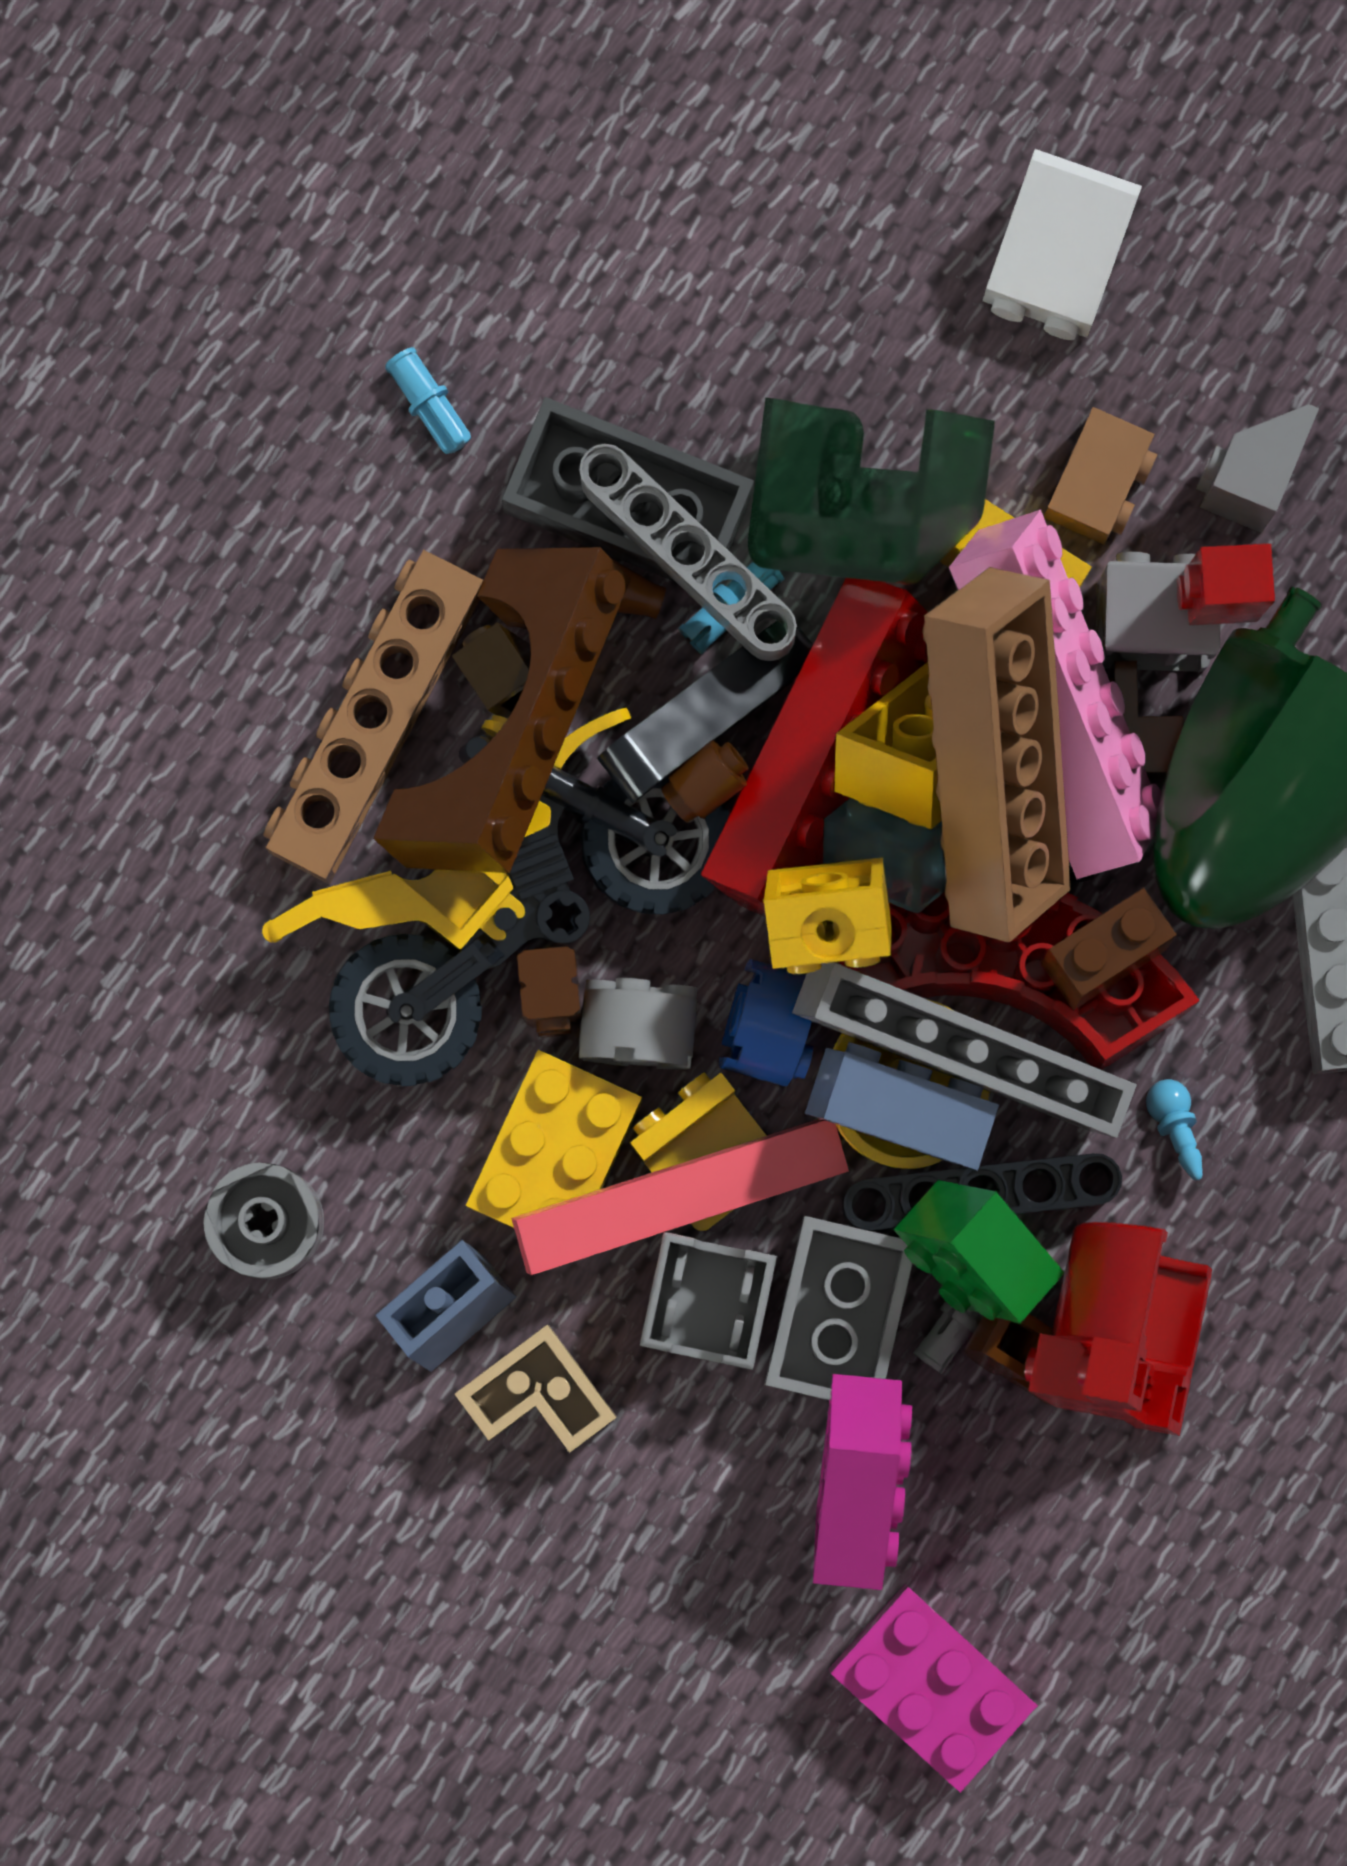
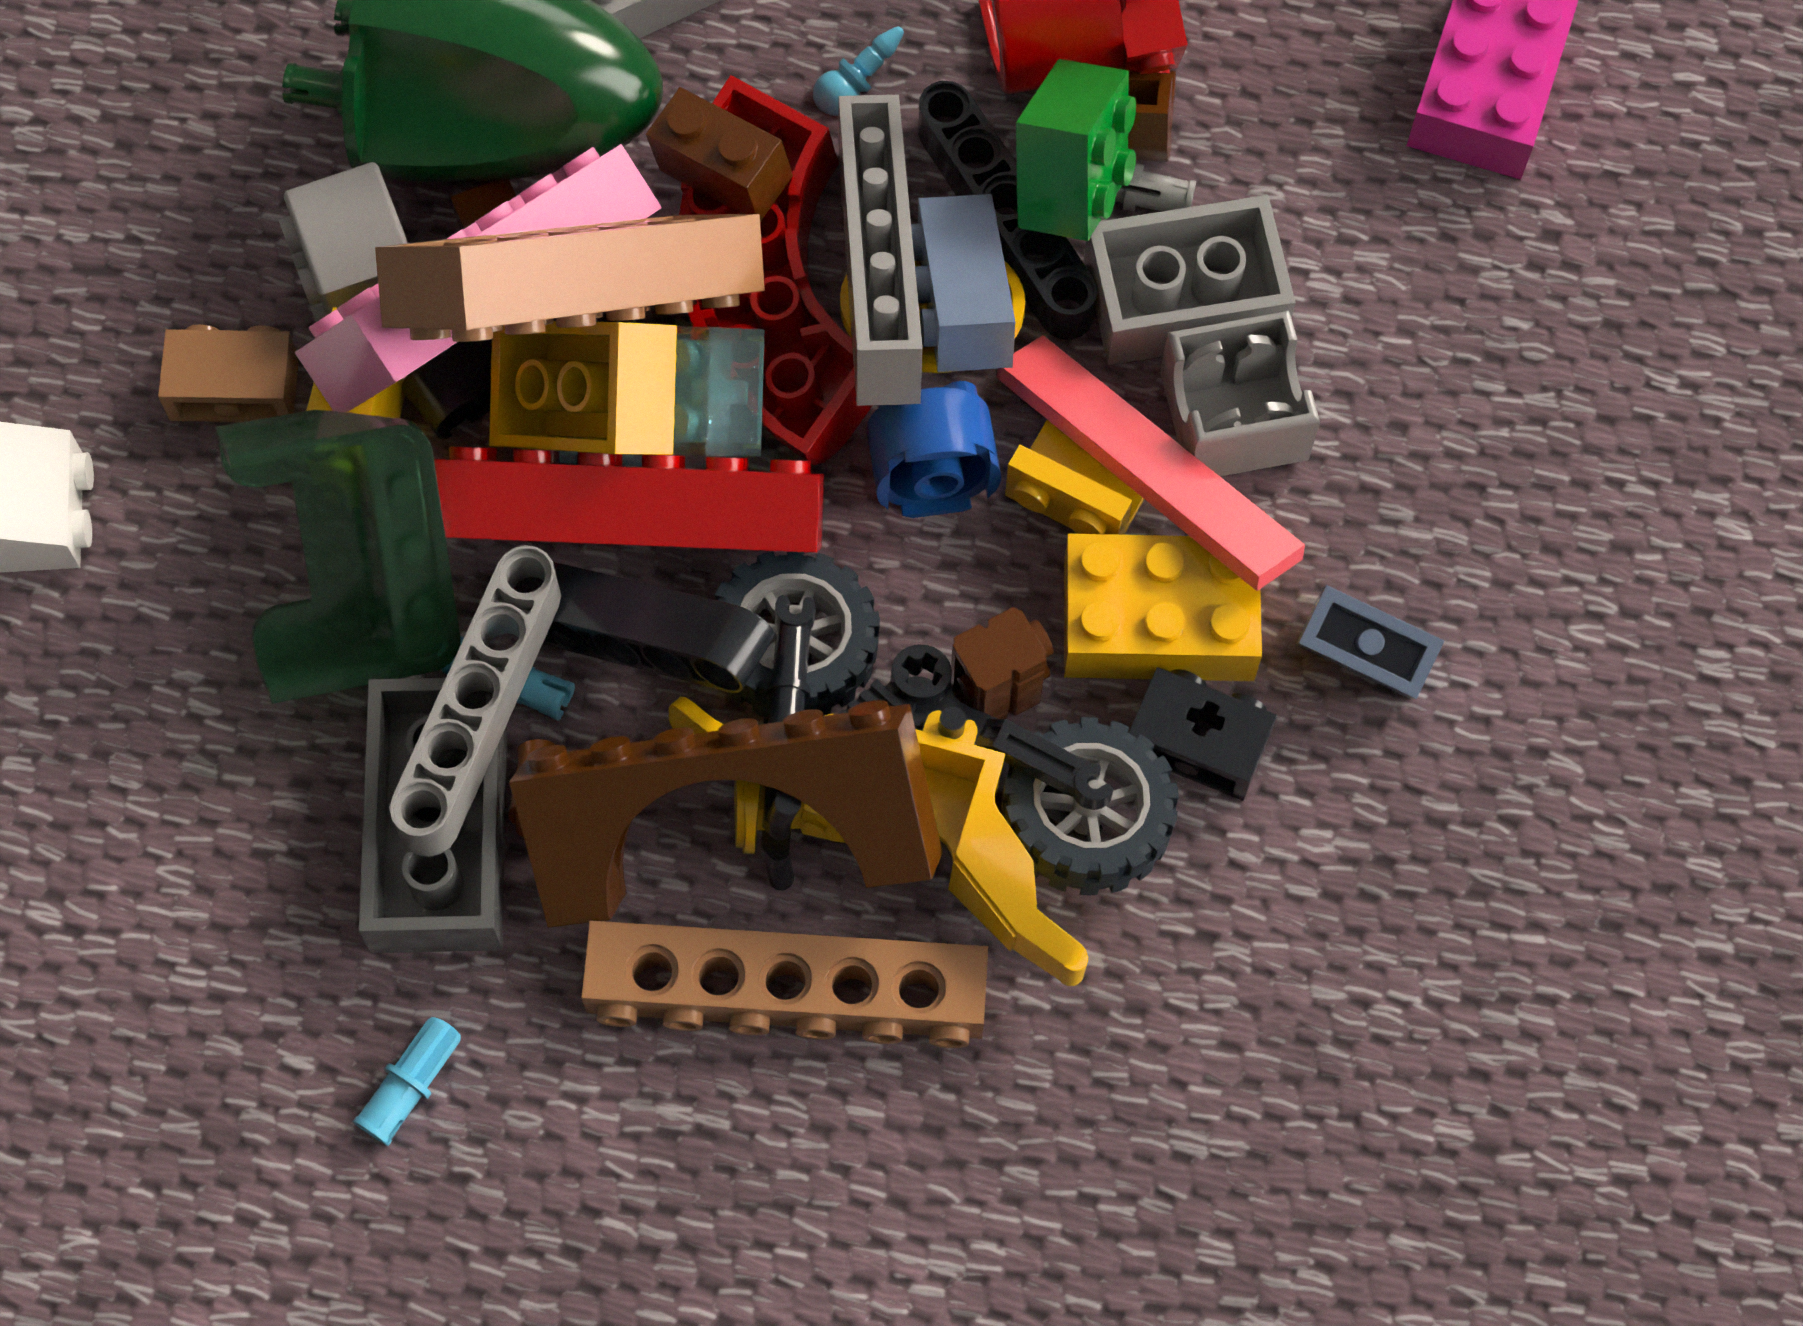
camera: 115 degrees left, 15 degrees down
(234, 1208) = (1355, 829): light grey brick -> none
(403, 1143) = (1228, 752): none -> black brick
(495, 666) = (683, 847): dark brown brick -> none
(538, 1376) = (1398, 530): tan brick -> none
(638, 1024) = (995, 565): light grey brick -> none
(705, 781) = (716, 575): reddish brown brick -> none
(828, 915) = (808, 377): yellow brick -> none
(859, 1482) = (1345, 176): dark pink brick -> none
(1227, 584) = (304, 147): red brick -> none
(1255, 468) = (165, 219): light grey slope -> none

